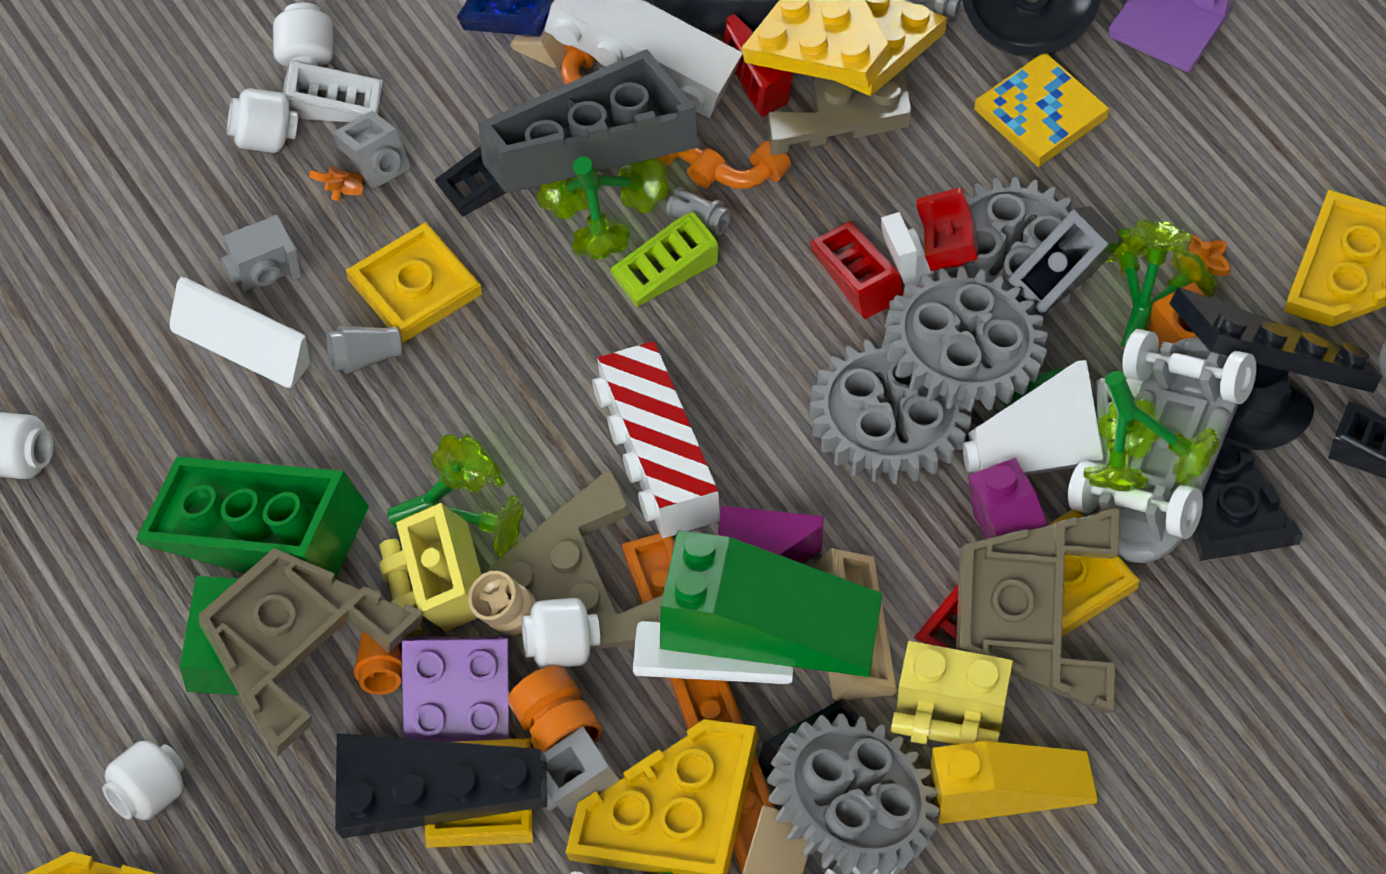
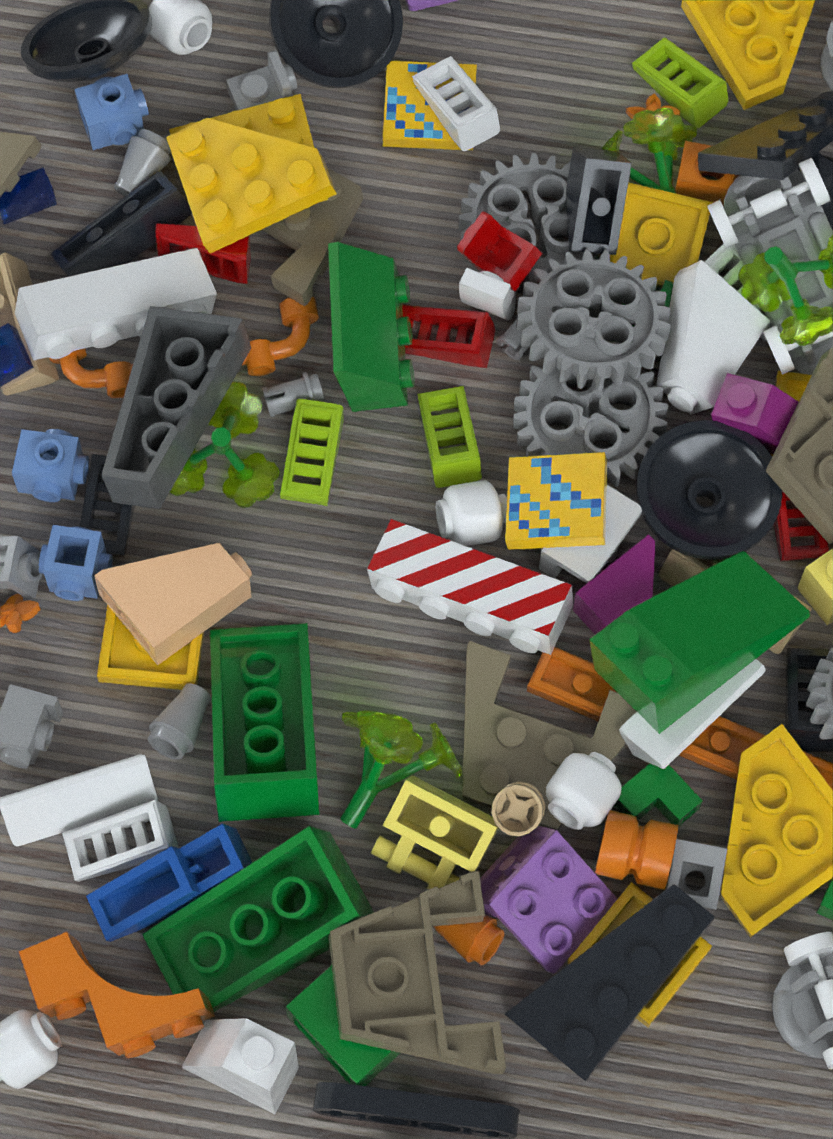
camera: 50 degrees left, 10 degrees up
(91, 436) = (129, 1021): none -> orange arch
(130, 591) = (244, 1060): none -> white slope
(203, 733) = (416, 1110): none -> black beam
(228, 434) = (168, 882): none -> blue slope
(258, 405) = (135, 817): none -> white slope
(408, 397) = (263, 723): none -> green slope
(414, 181) = (72, 561): none -> medium blue brick
(451, 260) = (175, 595): none -> light nougat slope
(470, 100) = (49, 465): none -> medium blue brick
(624, 696) = (659, 789): none -> green piece
(721, 394) = (471, 513): none -> white head
(760, 360) = (457, 463): none -> lime slope
(782, 432) = (556, 501): none -> tile
(787, 478) = (588, 561): none -> white panel
(794, 203) = (369, 328): none -> green slope
(901, 504) = (713, 463): none -> black dish
(1056, 122) = (469, 126): none -> white slope
(1093, 327) = (661, 231): none -> yellow tile
(1257, 254) = (699, 102): none -> lime slope

